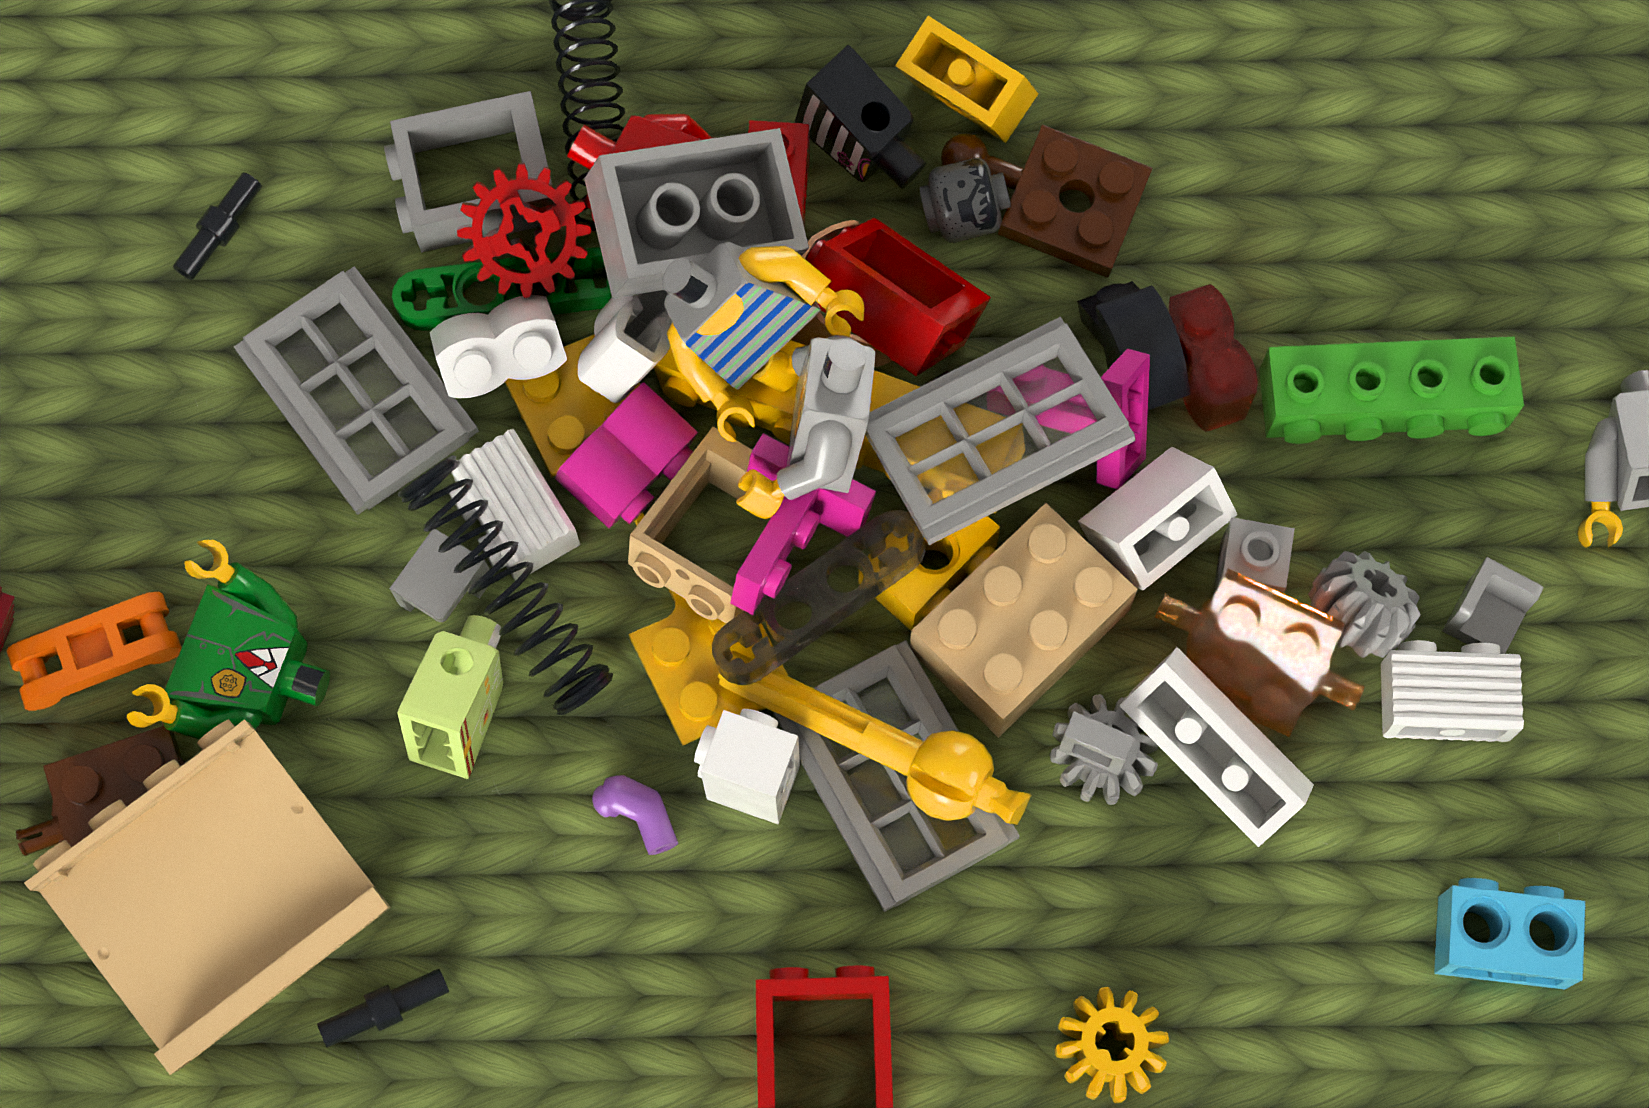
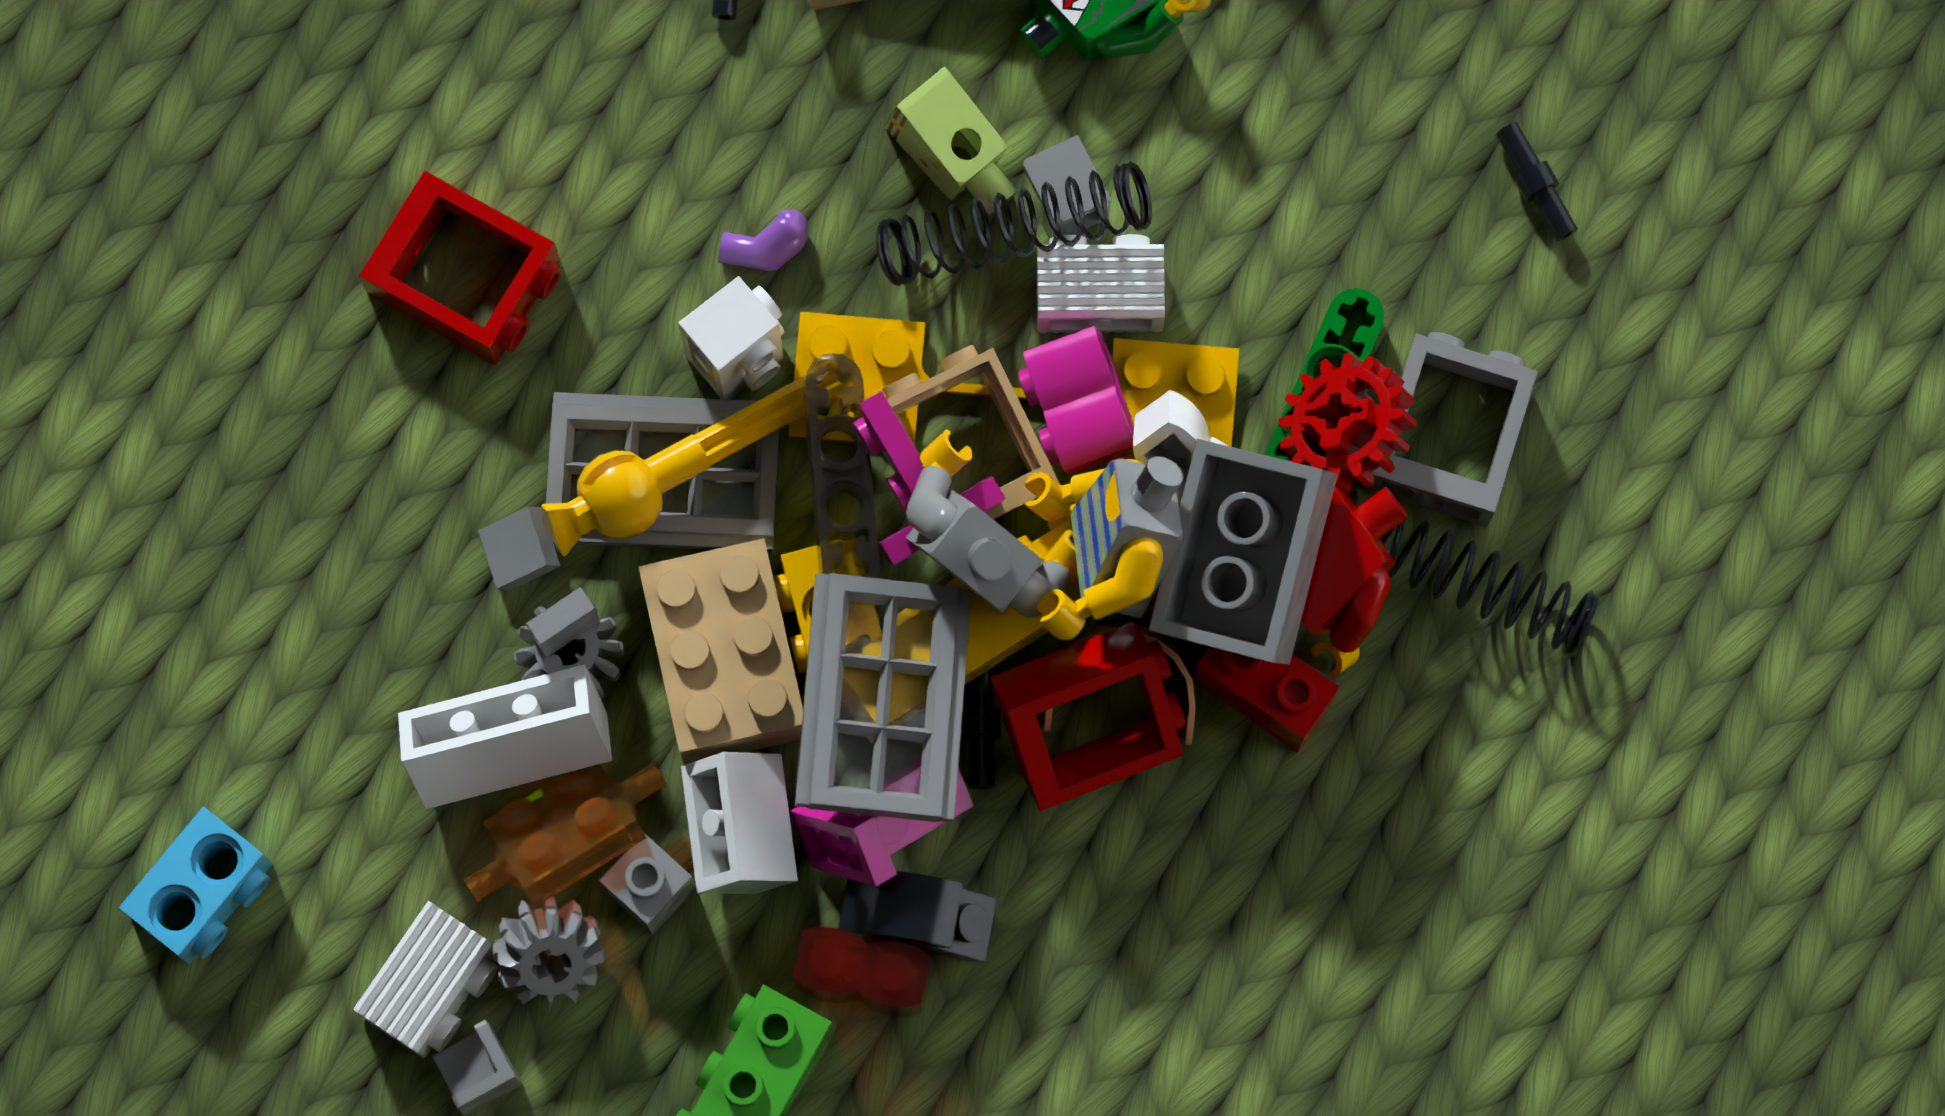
camera: 120 degrees right, 5 degrees up
(356, 390) = (1301, 218): light grey piece -> none
(485, 350) = (1256, 348): white brick -> none
(859, 120) = (1312, 798): black torso -> none
(964, 200) = (1151, 847): dark grey head -> none
(967, 79) = (1271, 923): yellow brick -> none
(1041, 850) = (518, 548): none -> light grey tile
(1058, 165) = (1111, 917): reddish brown plate -> none
(1098, 1062) = (319, 482): yellow gear -> none

